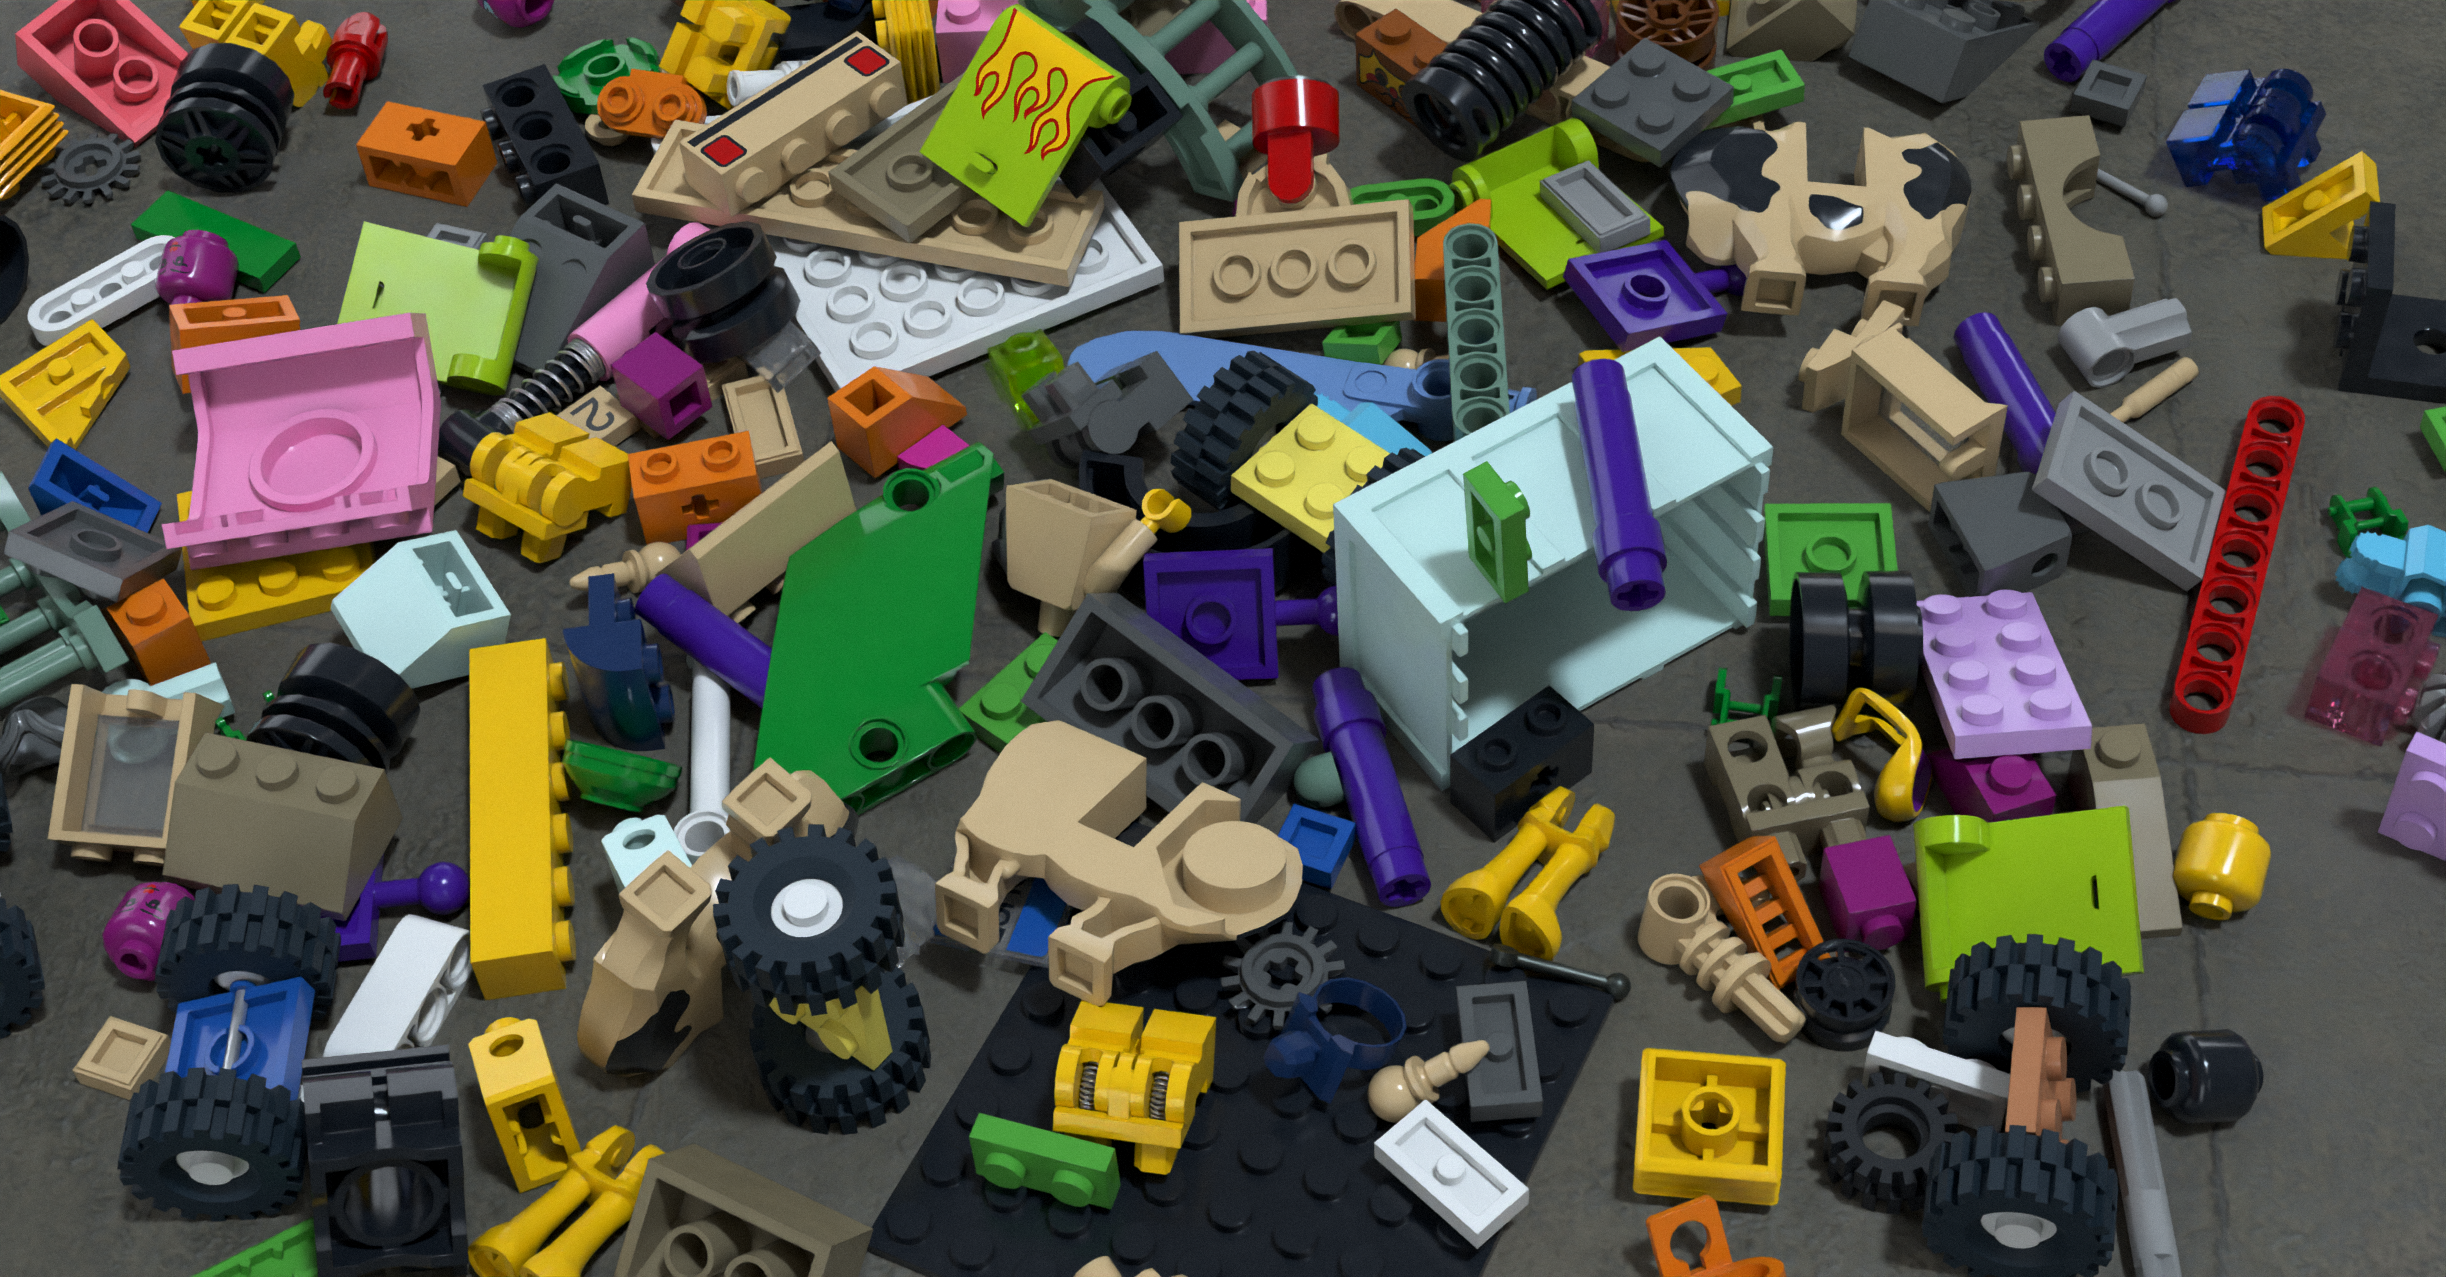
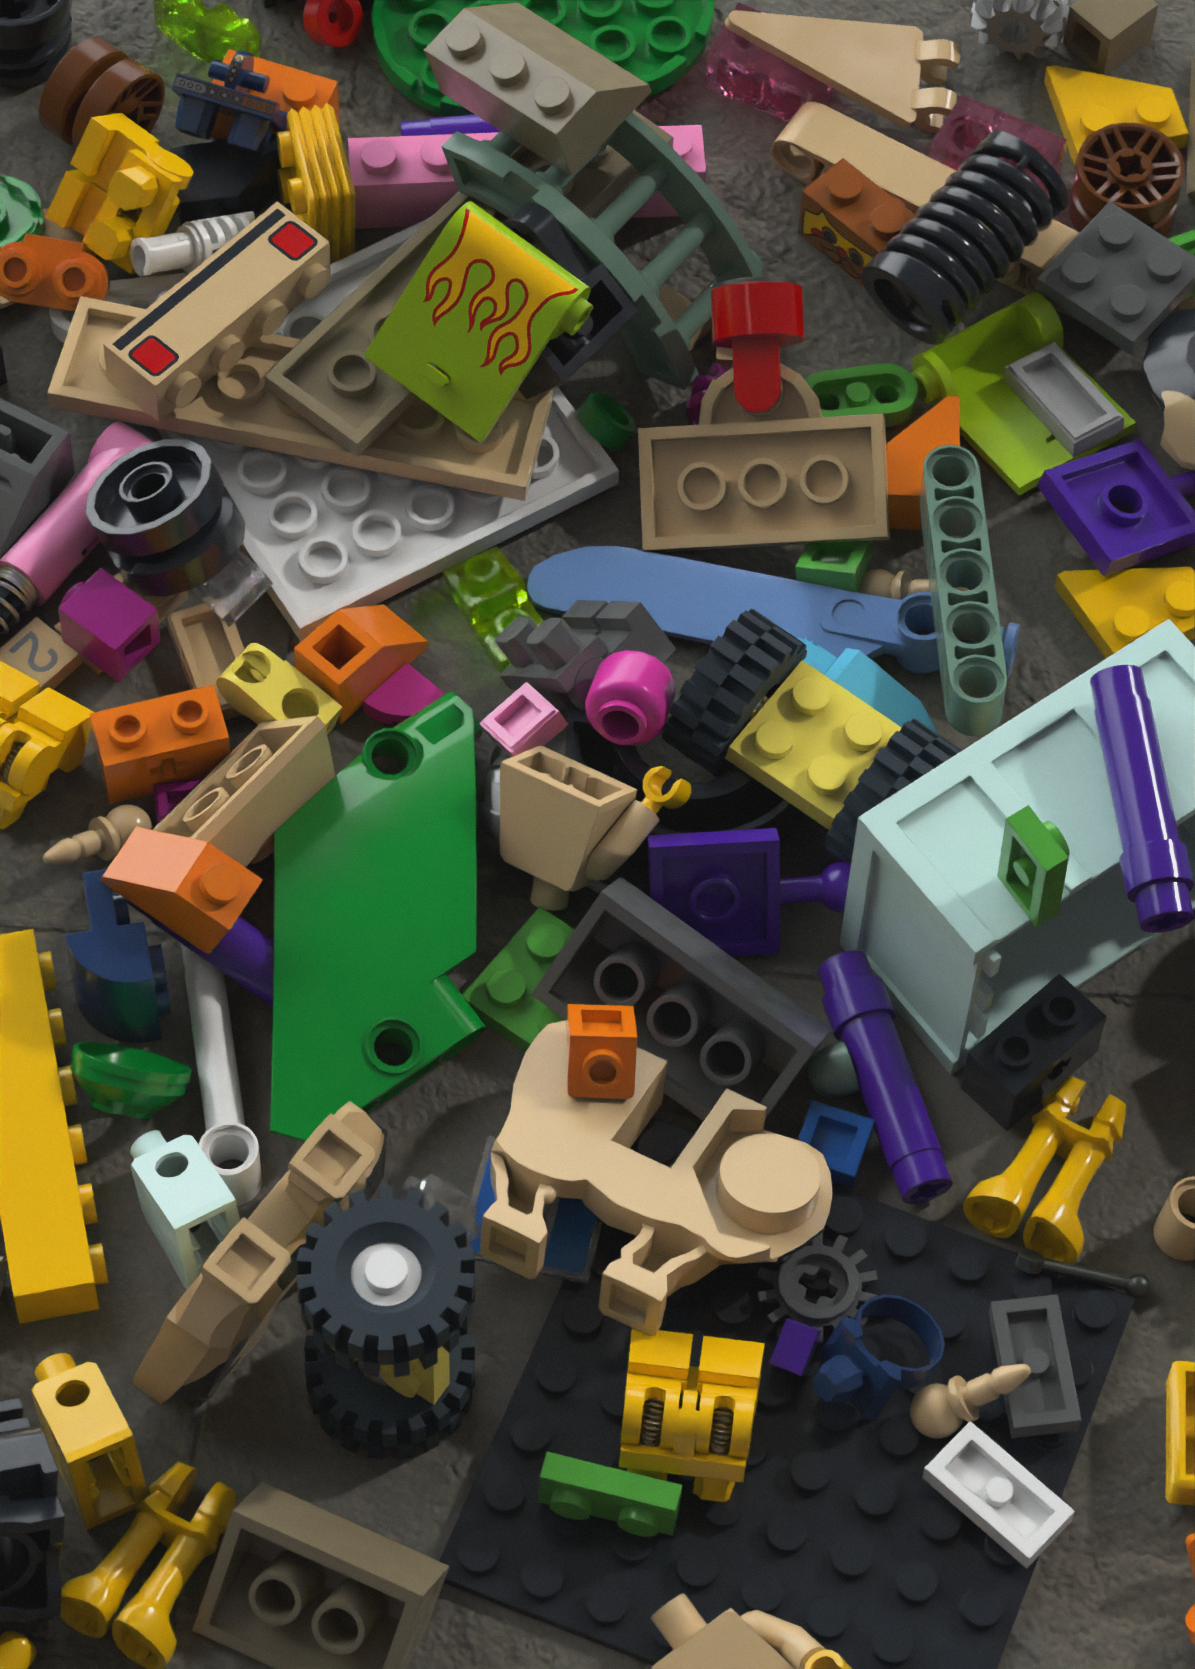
camera: 10 degrees left, 10 degrees up
(684, 587) = (182, 884): none -> orange slope
(799, 431) = (273, 689): none -> light yellow leg
(1040, 459) = (523, 721): none -> bright pink tile
(1075, 743) = (601, 1051): none -> orange bracket
(1138, 432) = (630, 697): none -> dark pink head
(1155, 226) = (606, 421): none -> green tile
(1252, 1026) = (795, 1347): none -> dark purple piece

